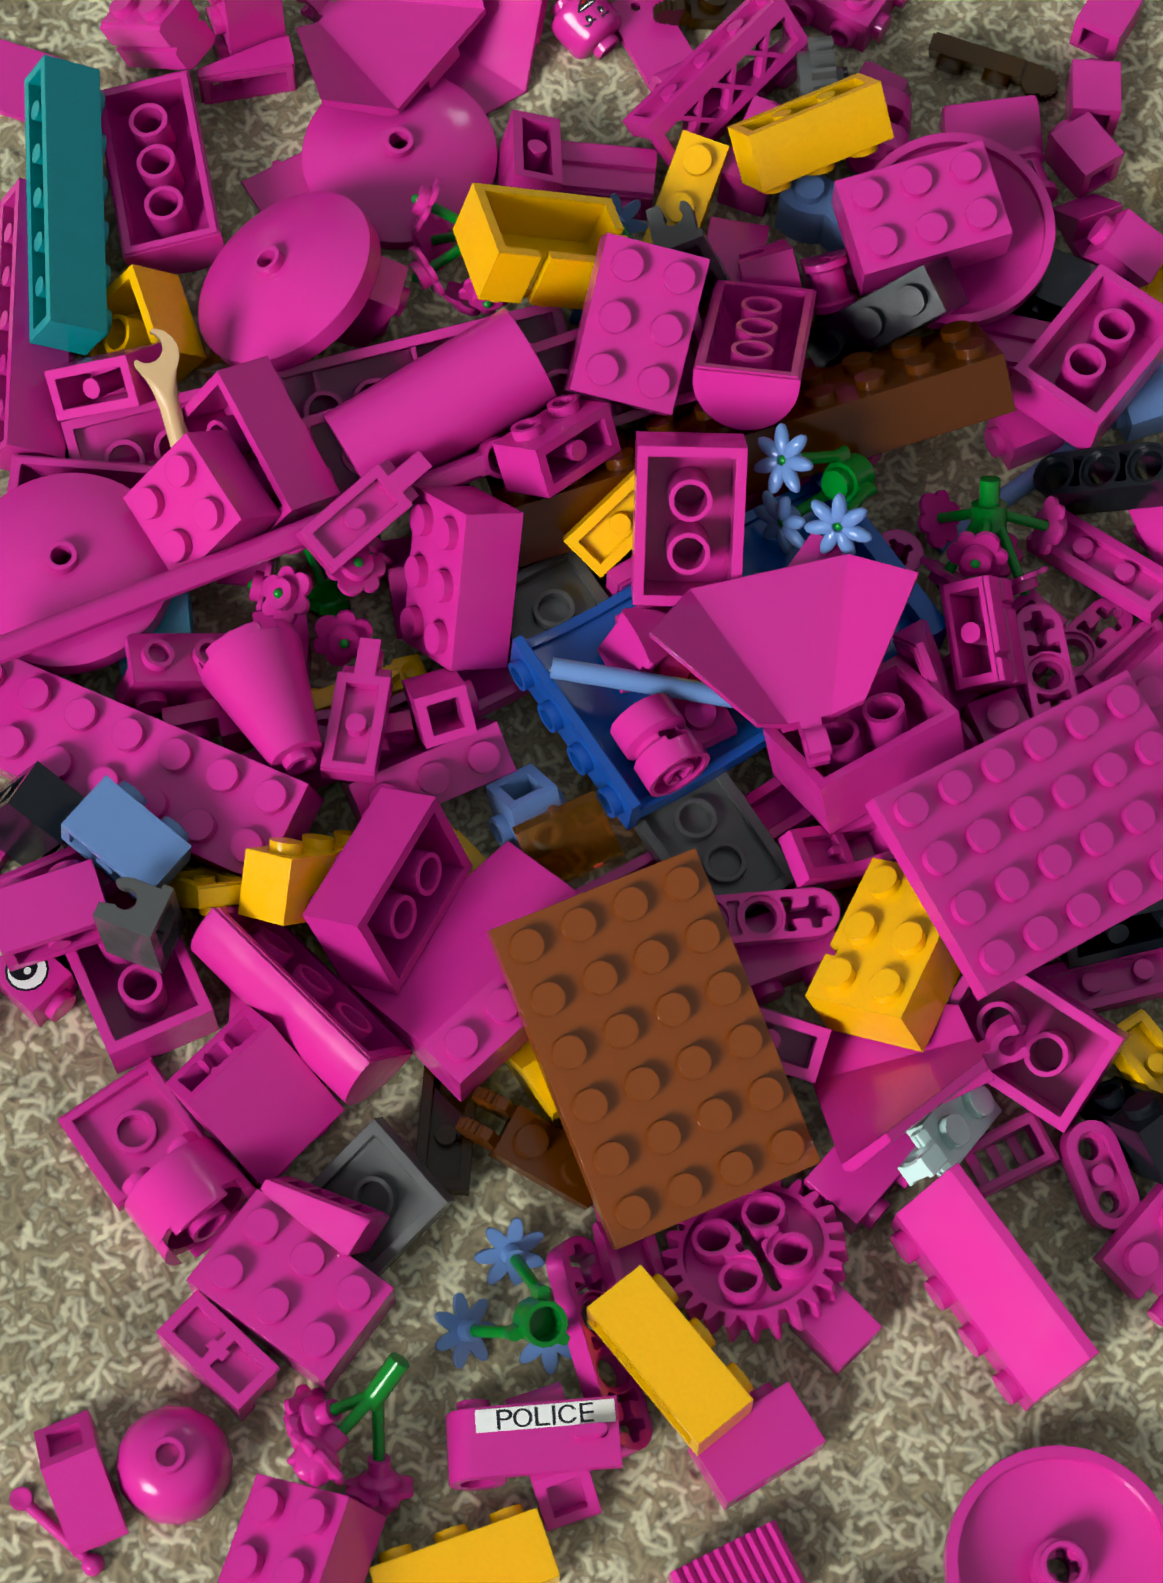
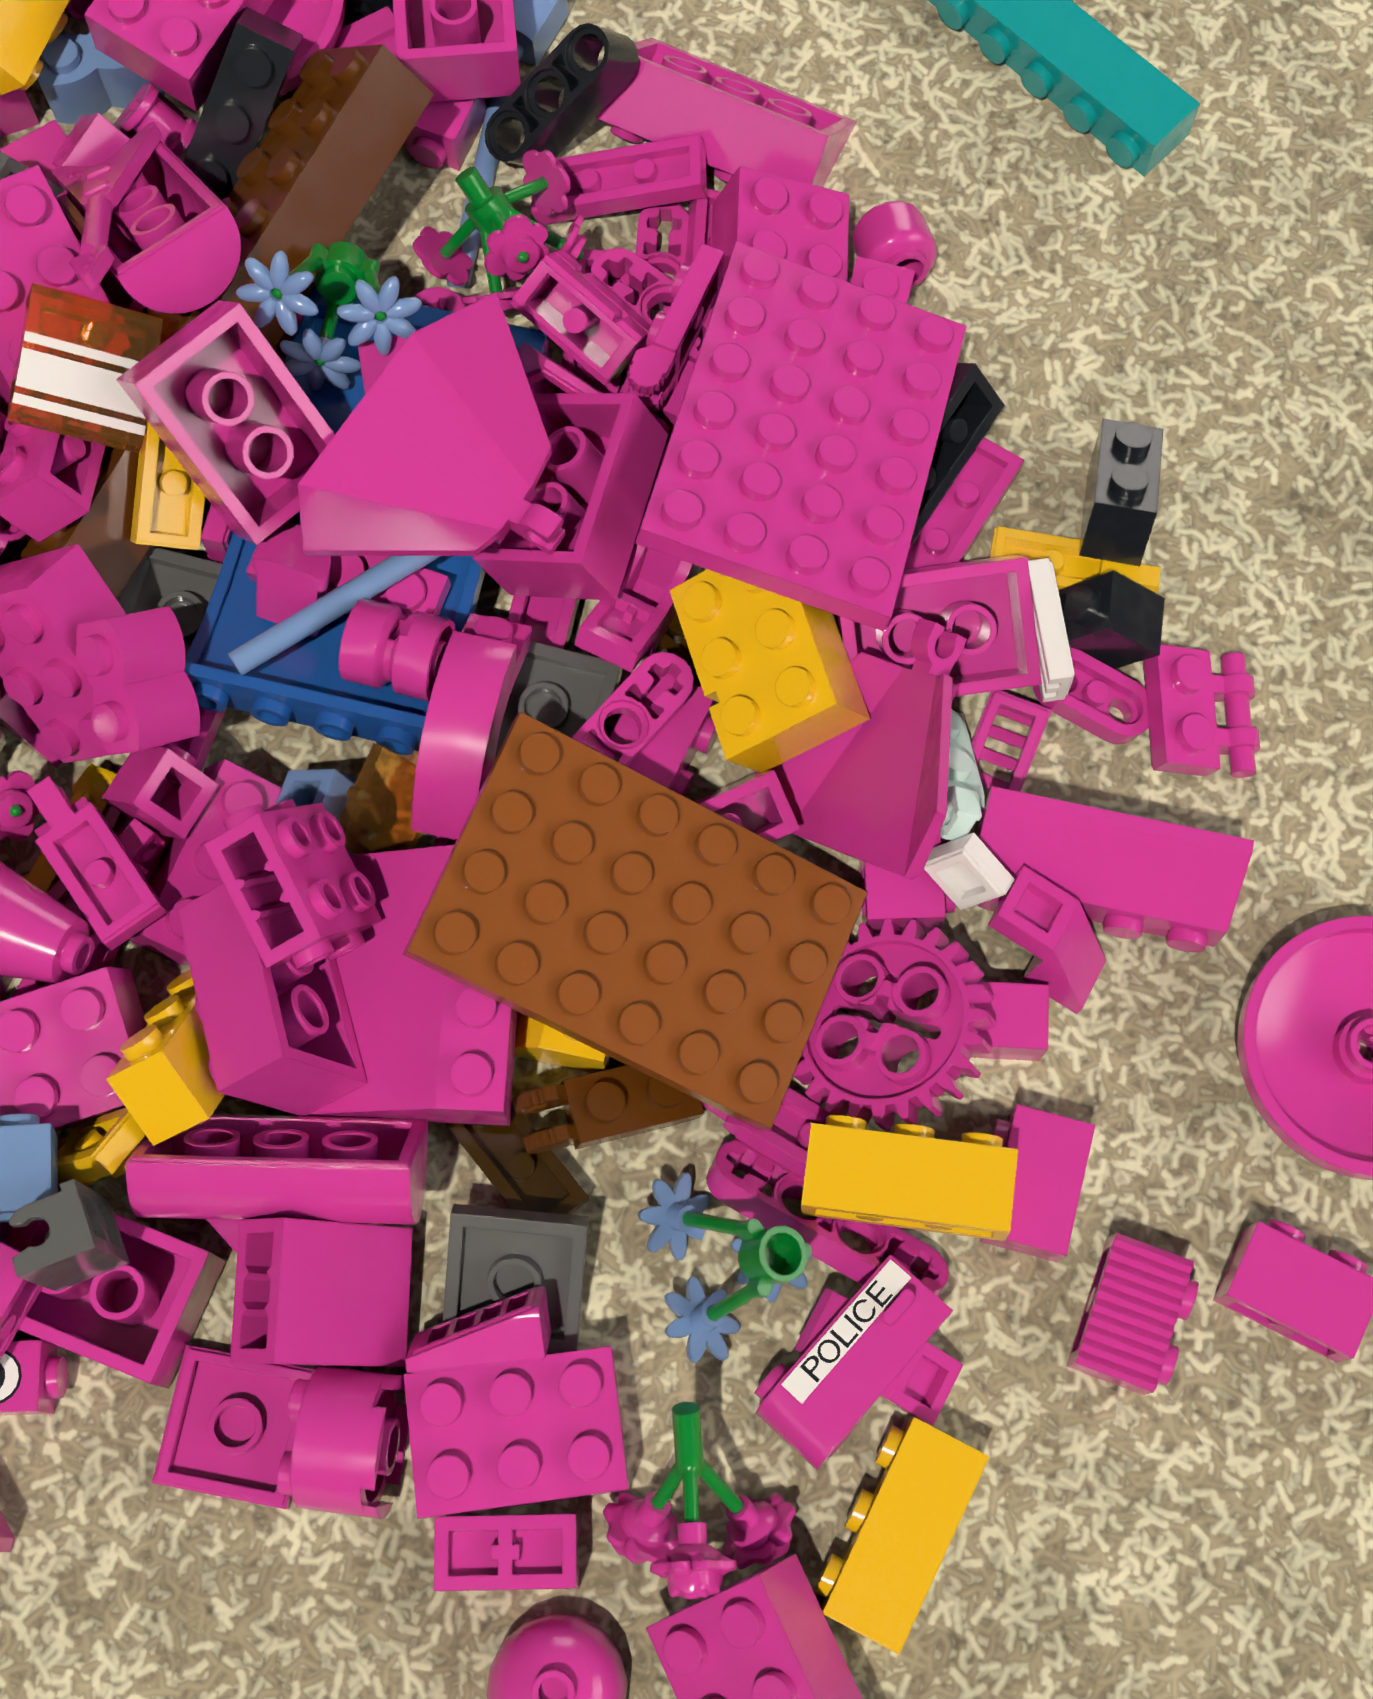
camera: 40 degrees left, 5 degrees up
(463, 832) = (294, 883): none -> dark pink brick
(484, 627) = (138, 680): none -> dark pink brick
(620, 396) = (71, 365): none -> clear orange slope
(666, 822) = (465, 721): none -> dark pink arch
(740, 301) = (98, 192): none -> dark pink piece
(894, 1205) = (968, 871): none -> white tile
(918, 1300) = (1056, 932): none -> dark pink slope
(1032, 695) = (674, 333): none -> dark pink hinge
(1099, 1100) = (1051, 633): none -> white tile

